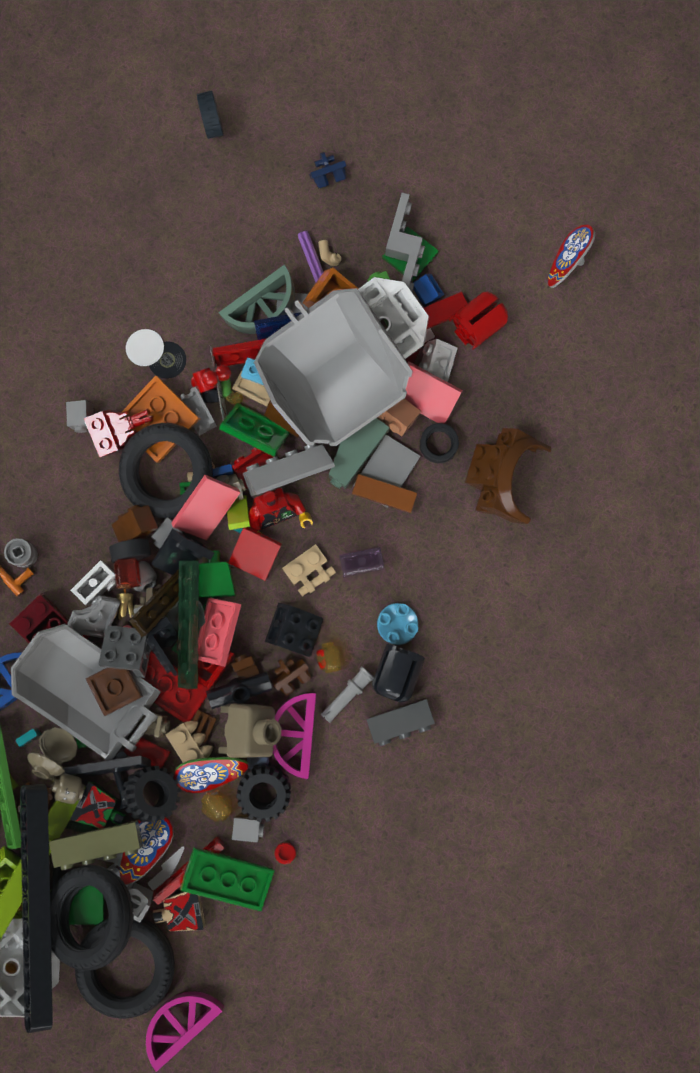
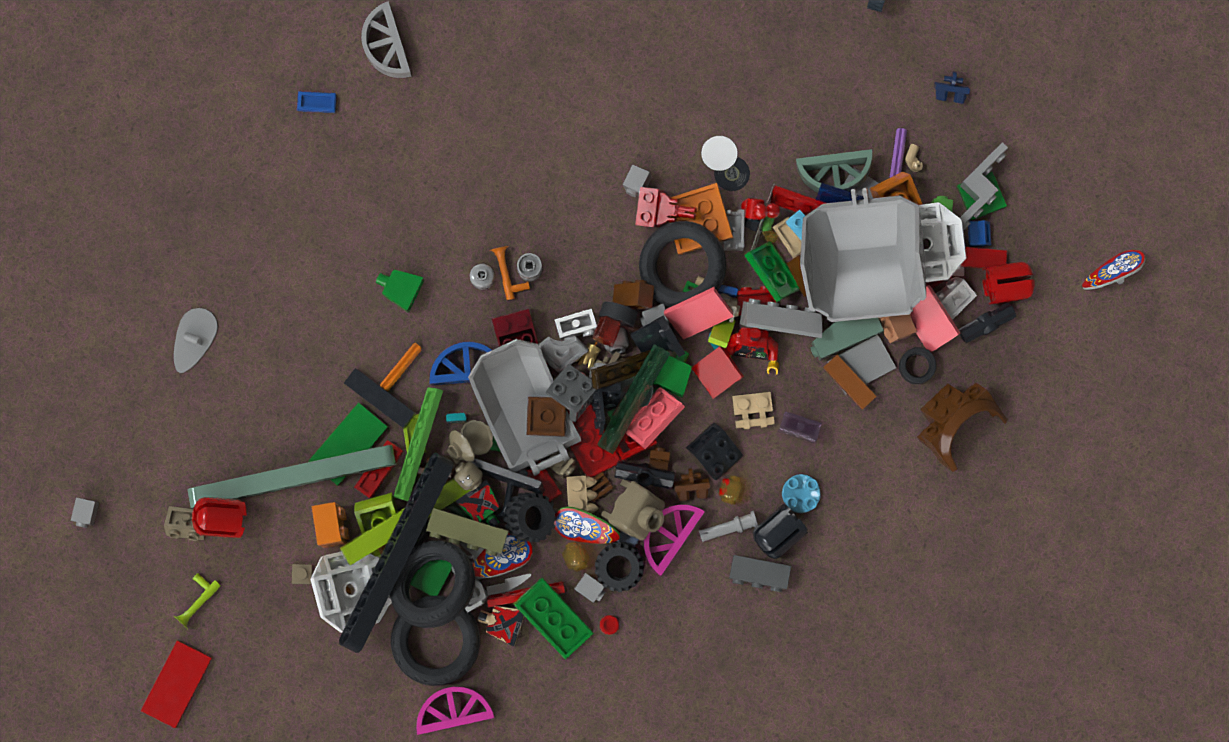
camera: 30 degrees right, 0 degrees up
(481, 367) = (987, 323): none -> black piece

